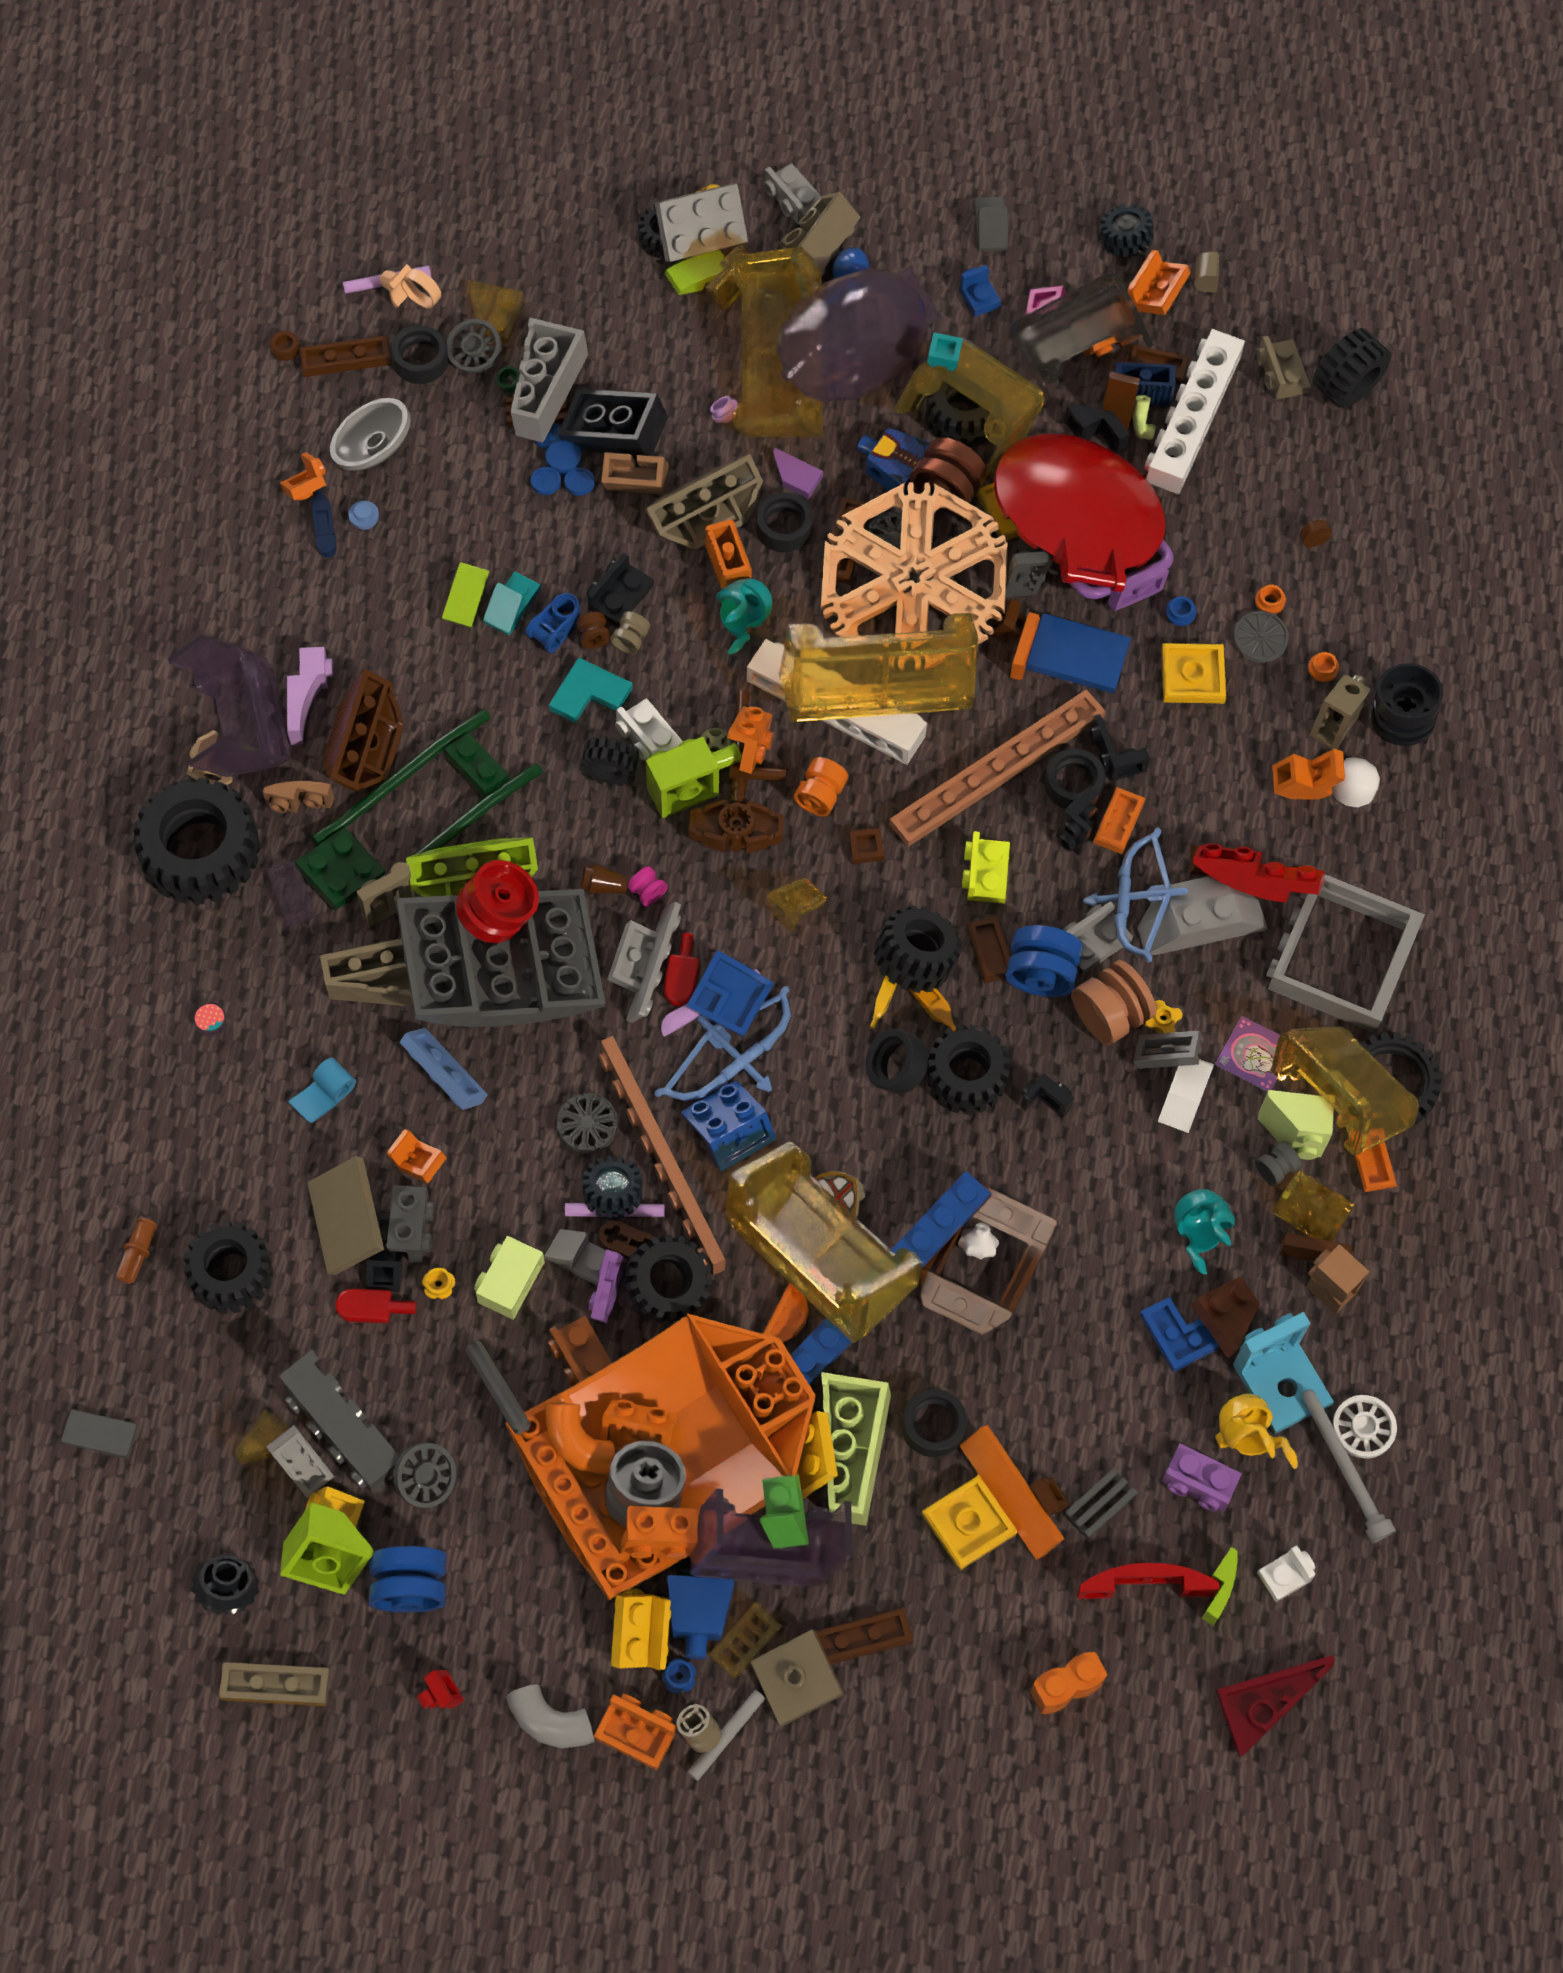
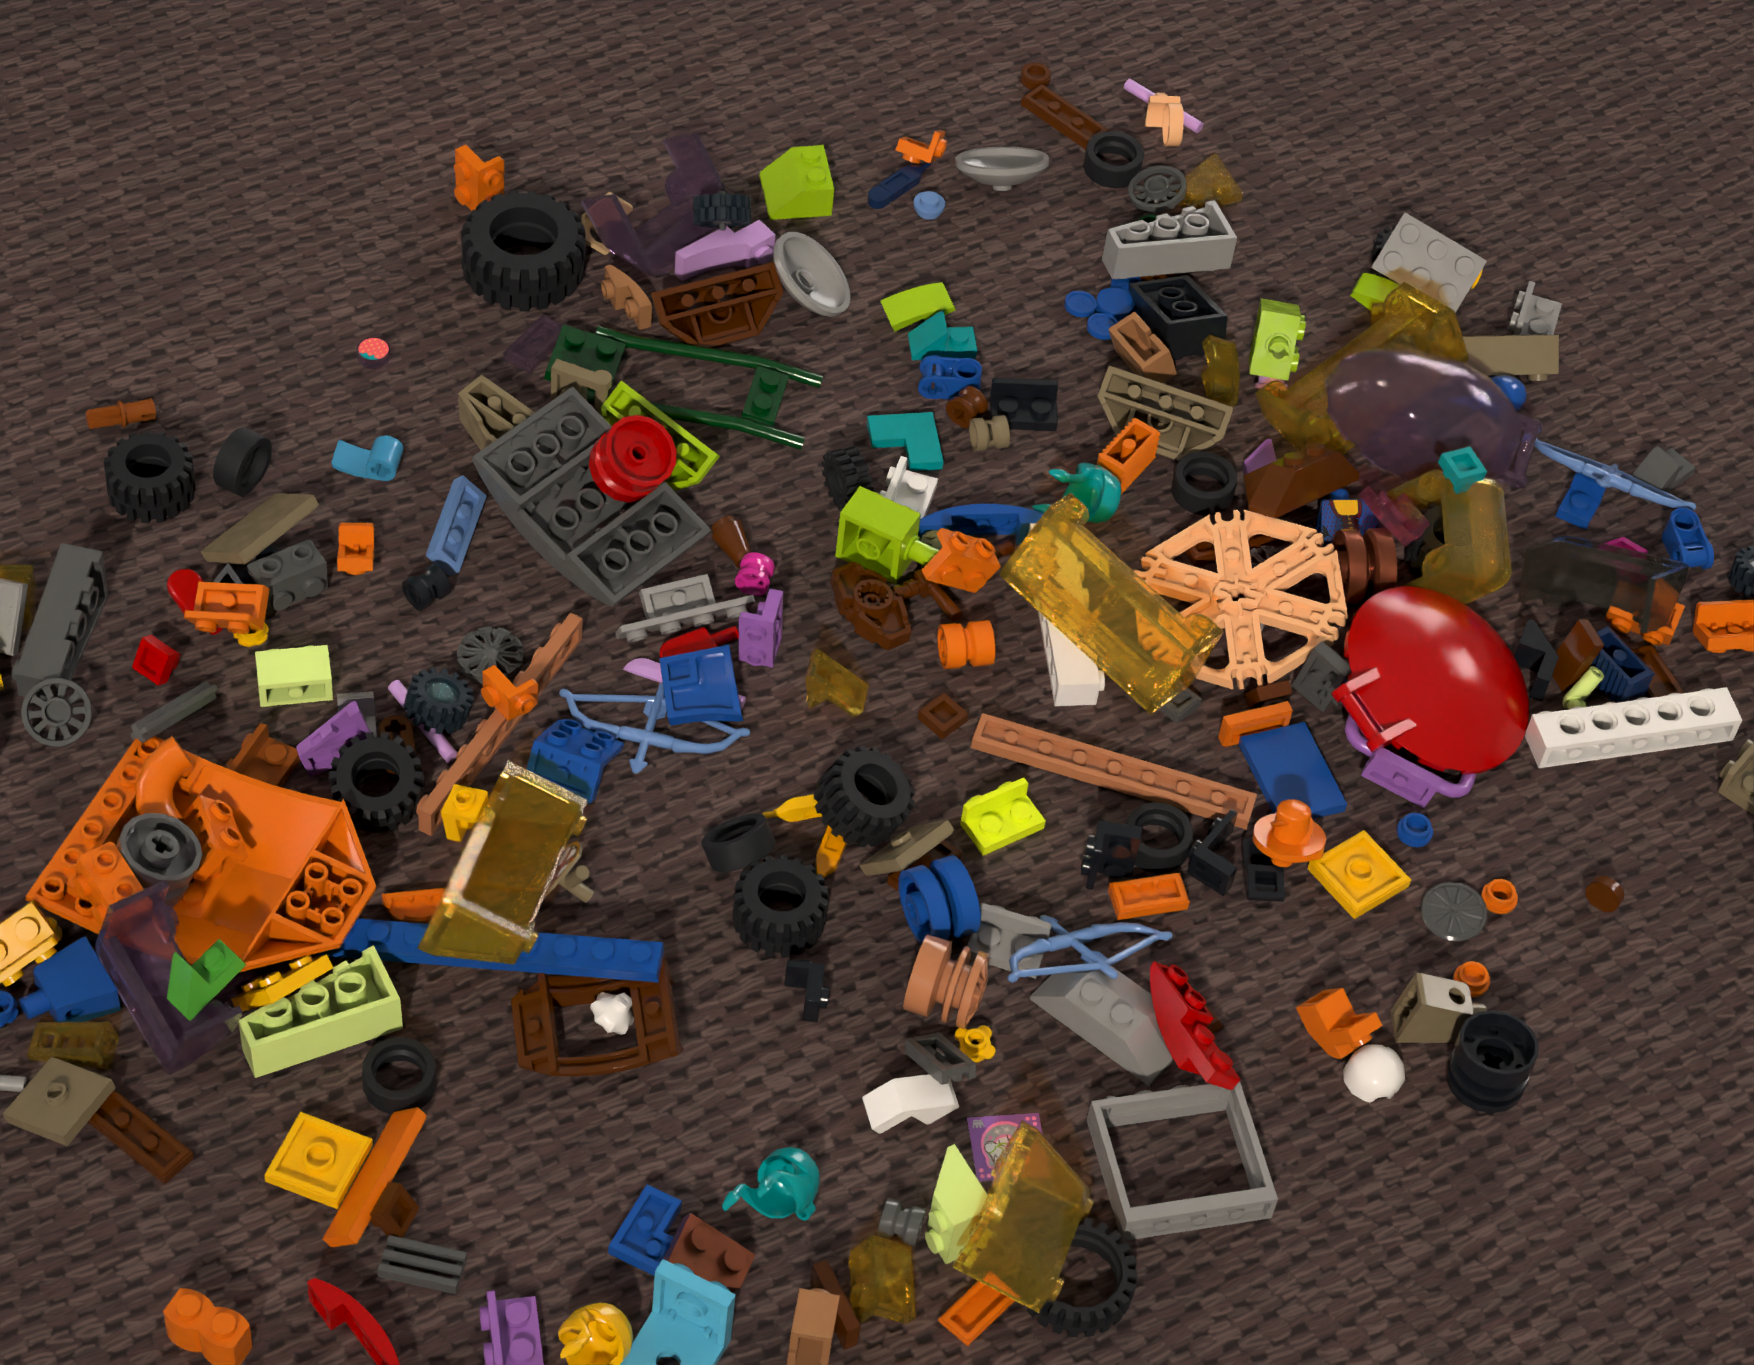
camera: 50 degrees right, 15 degrees down
(96, 830) = (476, 179): none -> orange bracket
(268, 1188) = (242, 461): none -> black tyre
(273, 593) = (798, 184): none -> lime slope
(278, 669) = (722, 210): none -> black wheel
(386, 649) = (811, 274): none -> light grey dish
(417, 1286) = (229, 607): none -> orange bracket
(420, 1371) = (155, 660): none -> red tile
(491, 1128) = (426, 587): none -> black wheel
(658, 1139) = (507, 698): none -> orange bracket
(695, 437) = (1223, 374): none -> clear yellow slope
(702, 378) = (1274, 339): none -> lime brick
(717, 915) = (762, 632): none -> medium lavender bracket
(732, 671) = (982, 520): none -> blue slope
(734, 1231) = (462, 810): none -> yellow bracket
(836, 465) = (1297, 480): none -> reddish brown wedge
(927, 420) = (1399, 517): none -> clear pink bracket
(980, 261) = (1610, 476): none -> medium blue piece
(982, 951) = (907, 848): none -> dark tan plate
(1063, 254) = (1687, 540): none -> blue piece
(1140, 695) = (1289, 834): none -> orange plate
(1144, 732) = (1261, 877): none -> black slope

